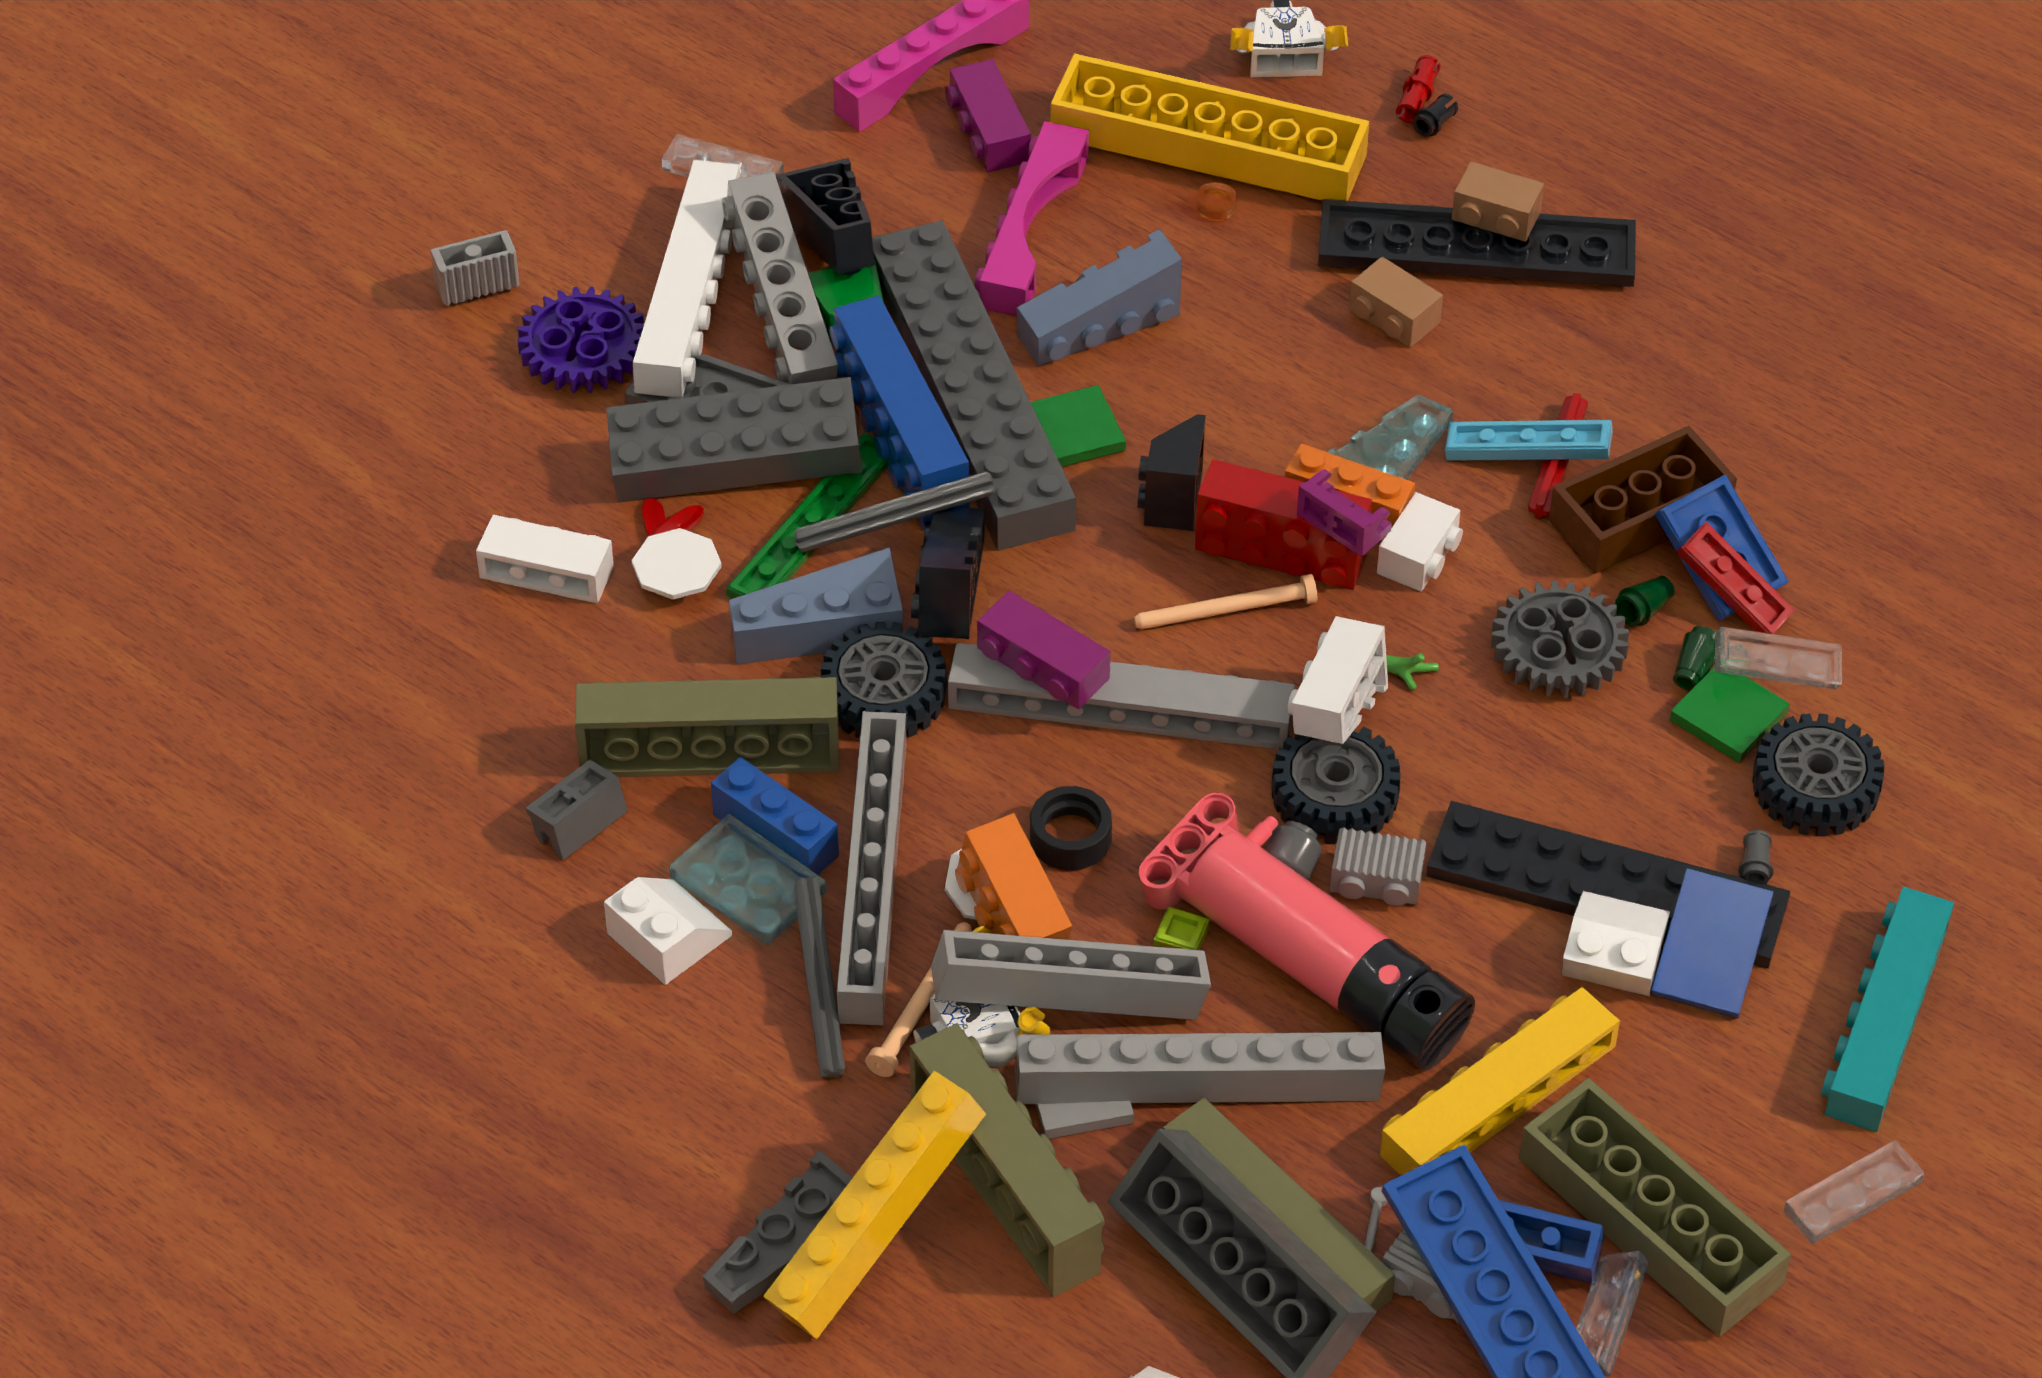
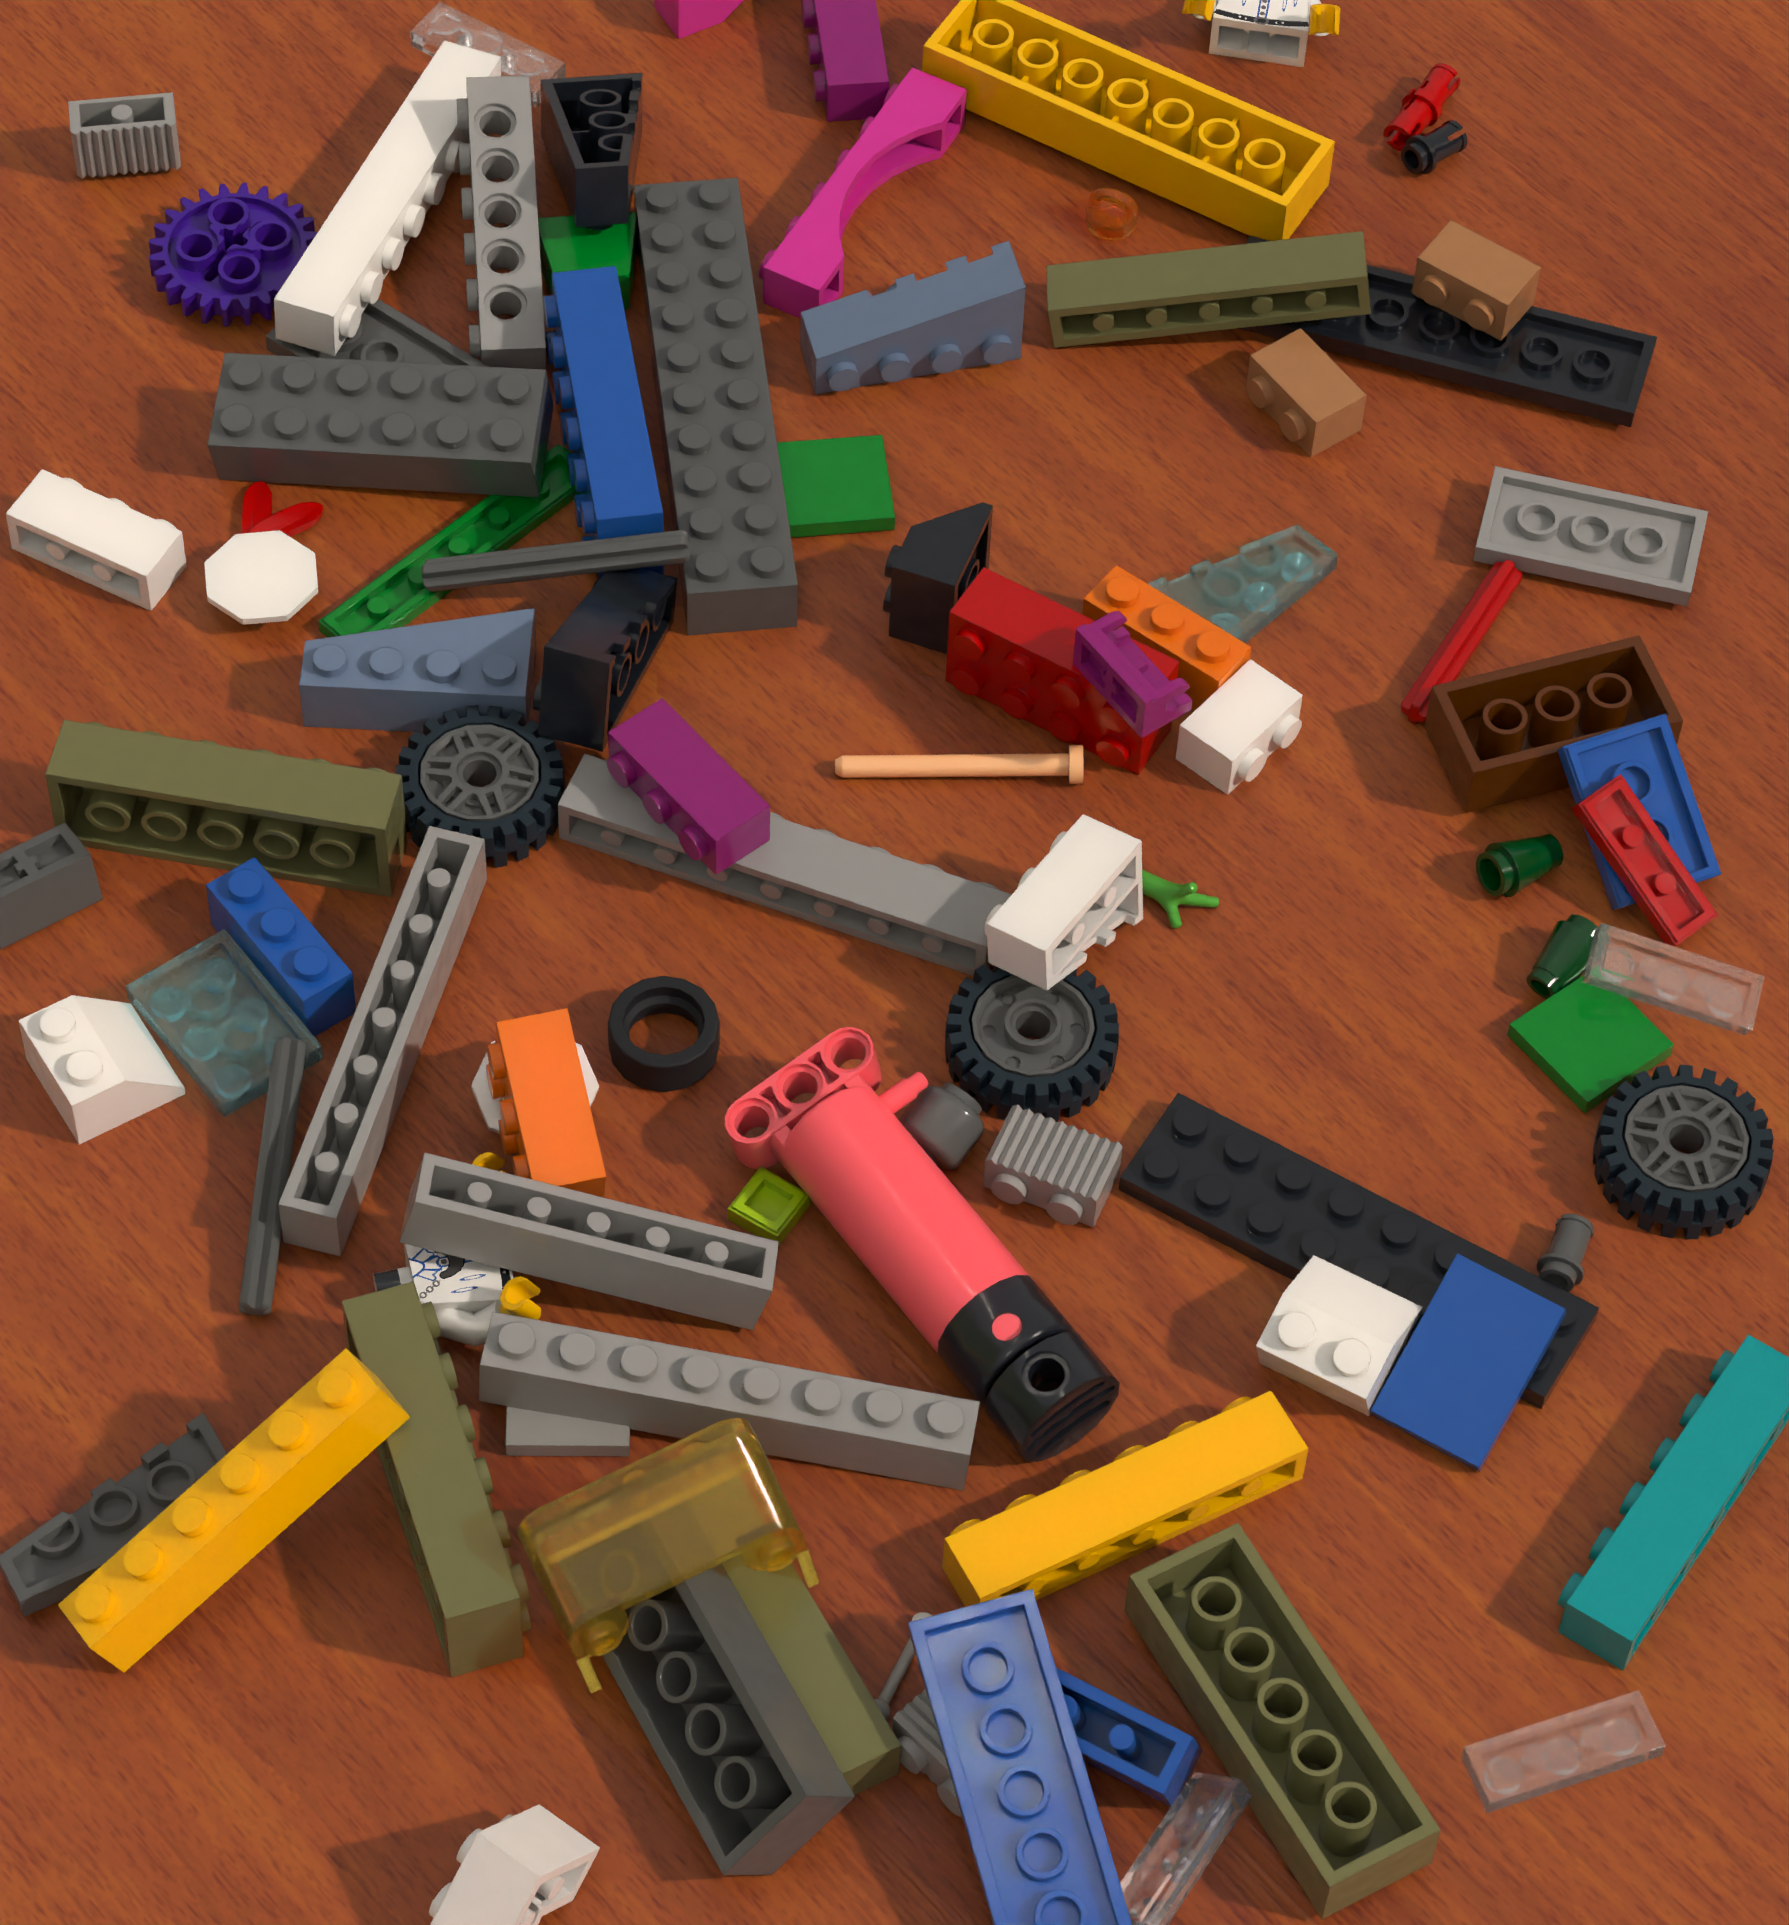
camera: 10 degrees right, 5 degrees up
(883, 1059) = (325, 1303): light nougat bar -> none
(1184, 1157) = (657, 1529): none -> clear yellow windscreen
(1308, 240) = (1208, 289): none -> olive brick
(1529, 440) = (1426, 614): medium azure tile -> none
(1542, 644) = (1438, 891): dark grey gear -> none
(1628, 366) = (1591, 536): none -> light grey plate

